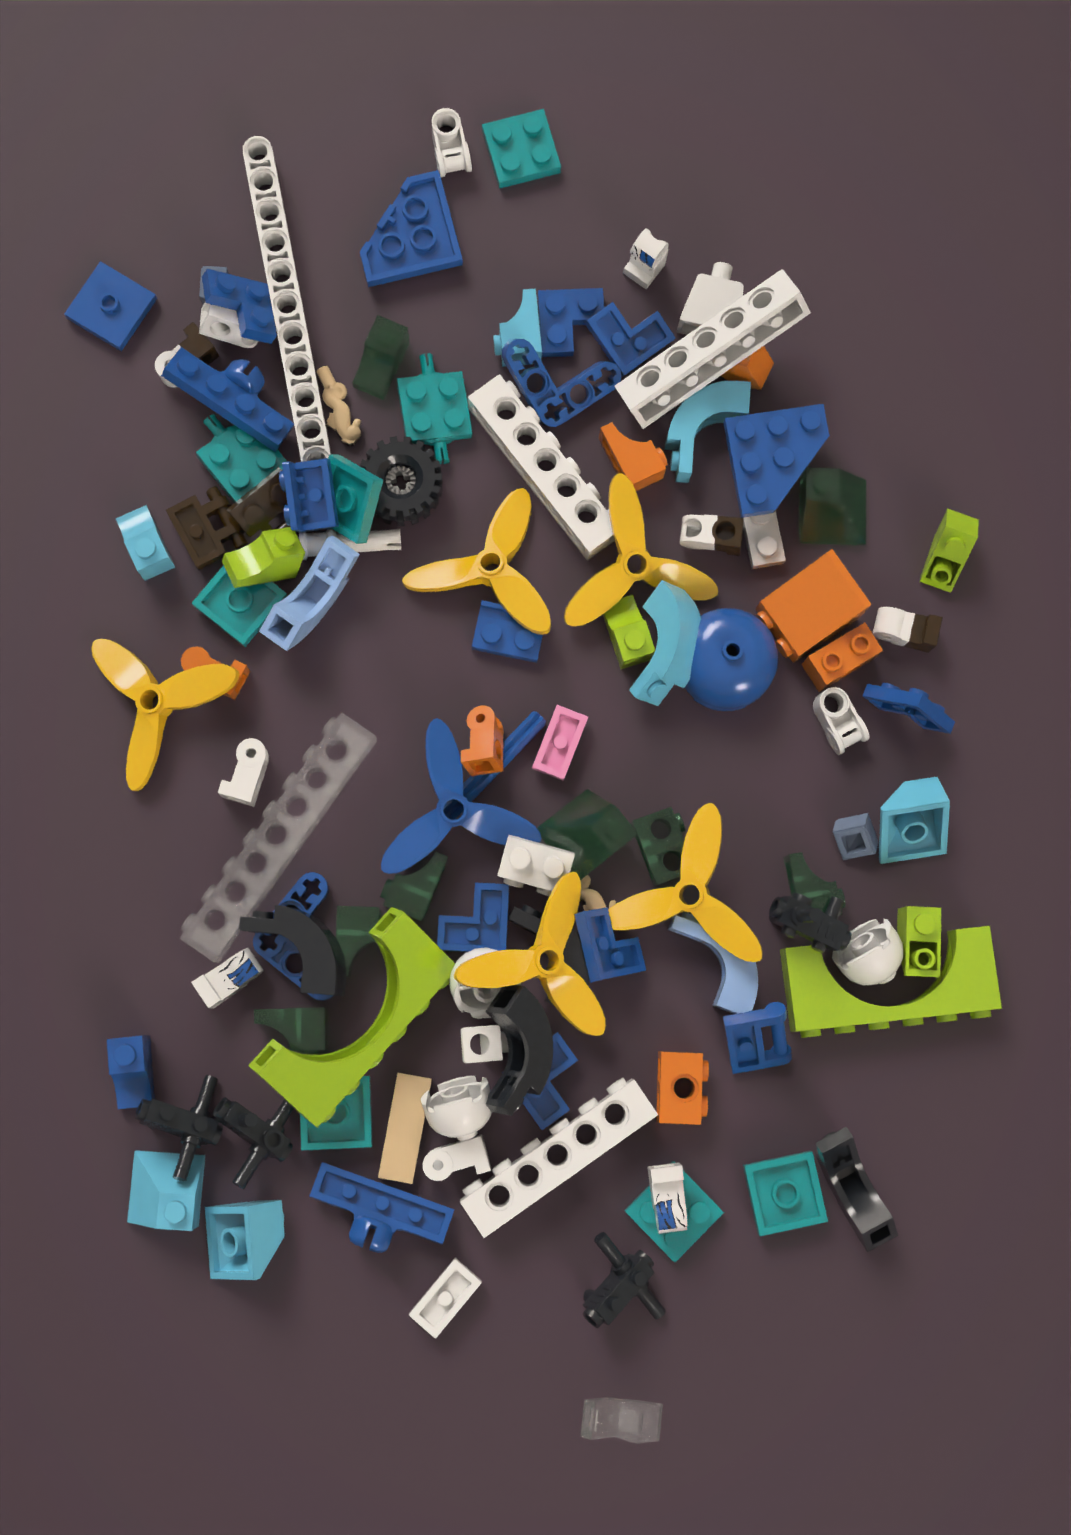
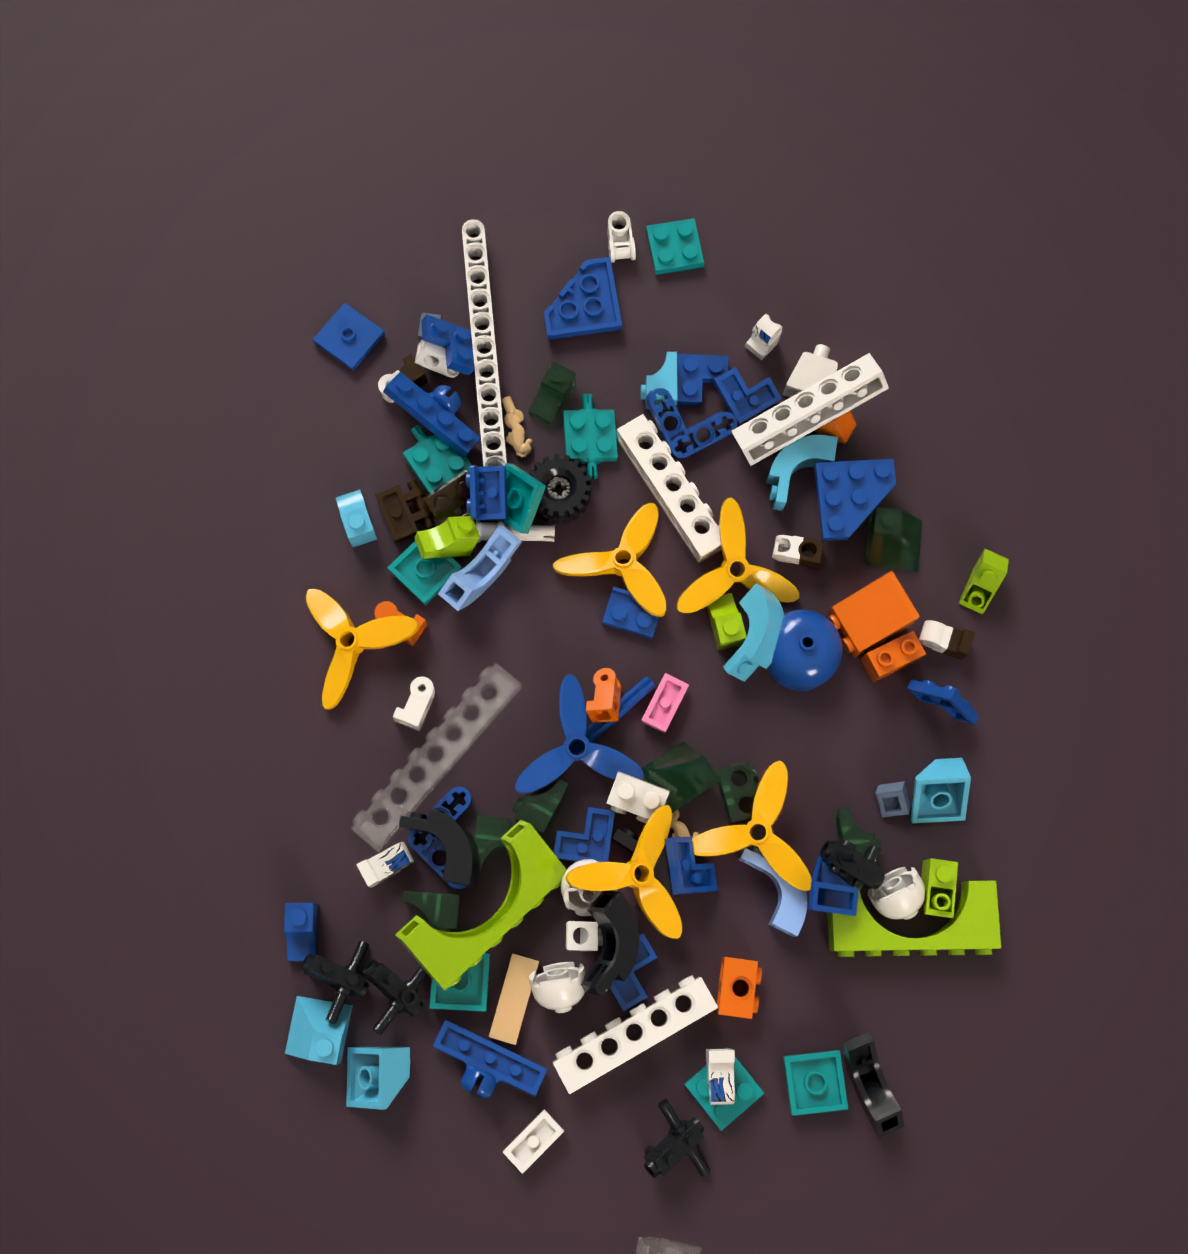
camera: 10 degrees right, 5 degrees down
(455, 1156) = (553, 1025): white leg -> none
(635, 459) = (744, 489): orange arch -> none
(746, 1039) = (793, 954): blue plate -> none
(763, 541) = (838, 560): white plate -> none
(787, 959) = (832, 892): none -> blue slope
(842, 721) = (887, 707): white piece -> none

